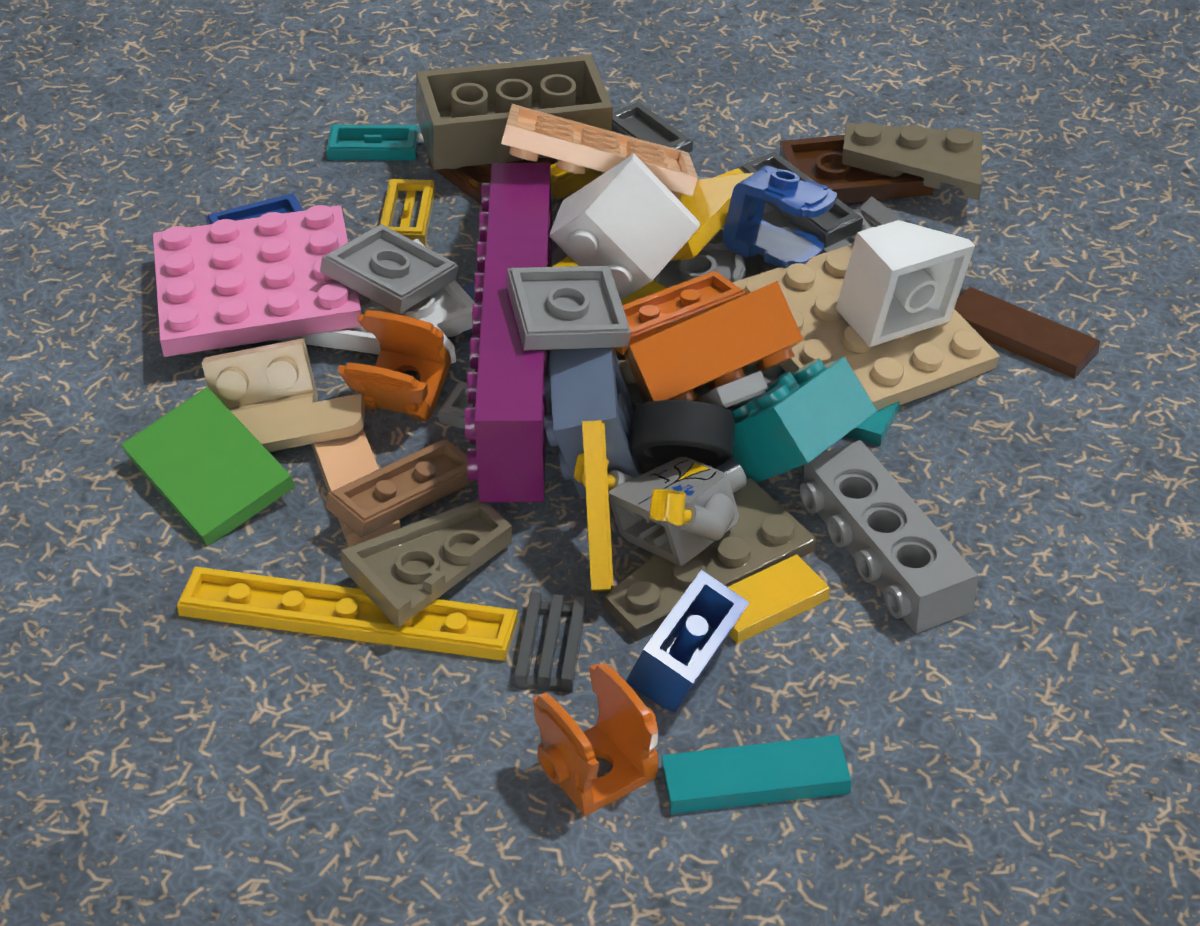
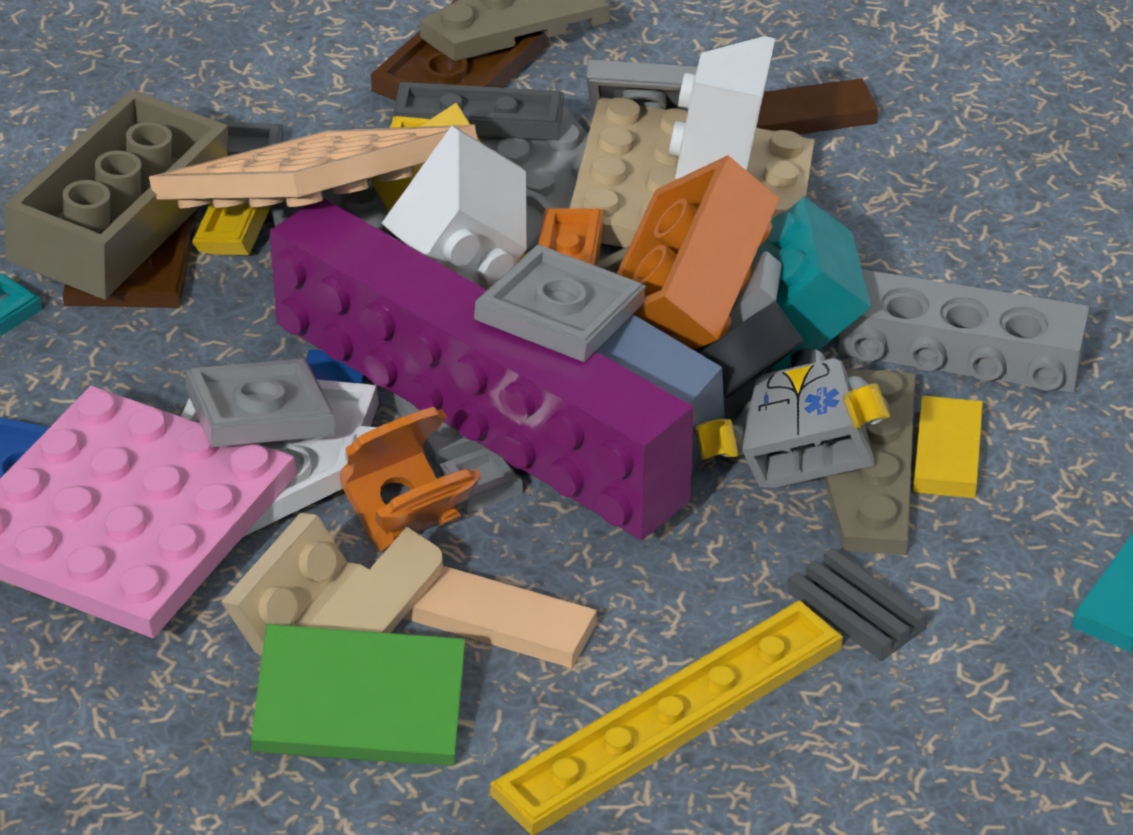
camera: 50 degrees left, 0 degrees up
(400, 488) = (557, 579): medium nougat tile -> none
(411, 186) = (117, 363): yellow tile -> none
(425, 559) = (675, 618): dark tan wing -> none
(597, 506) = (779, 459): yellow tile -> none
(623, 737) = (1040, 629): orange piece -> none
(686, 641) = (979, 513): blue brick -> none
(749, 234) = (496, 103): blue piece -> none

